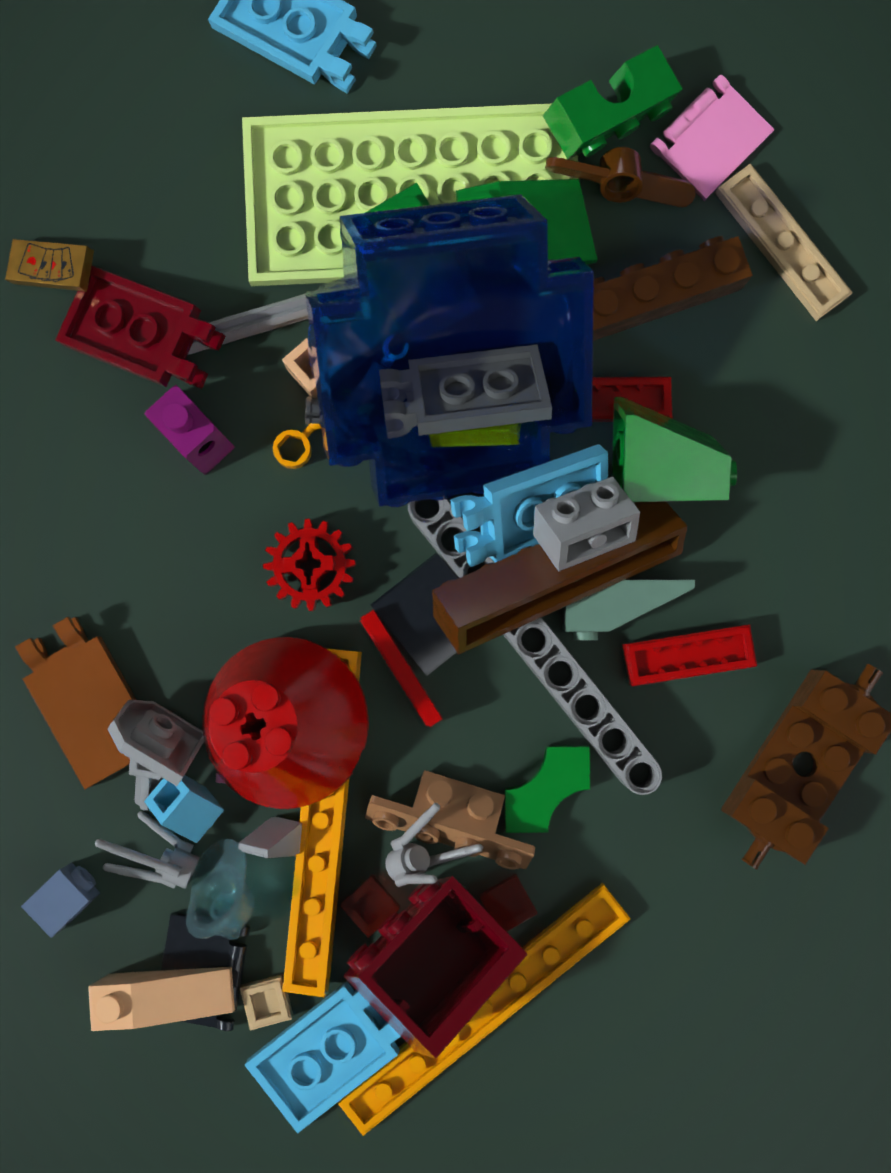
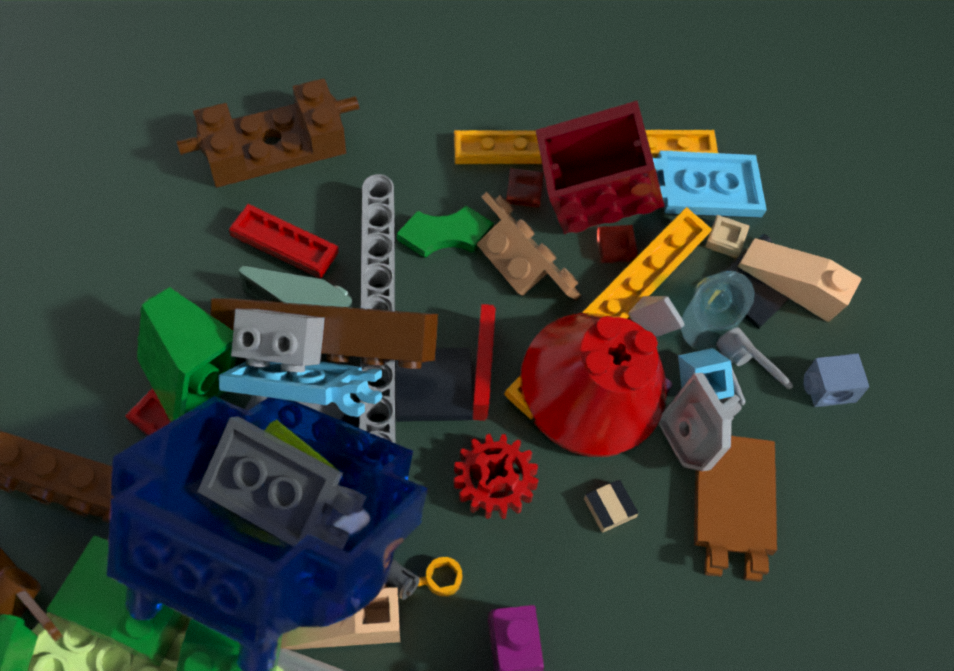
camera: 145 degrees left, 25 degrees down
(194, 617) = (611, 506): none -> tile
(410, 861) = (570, 244): light grey plant -> none

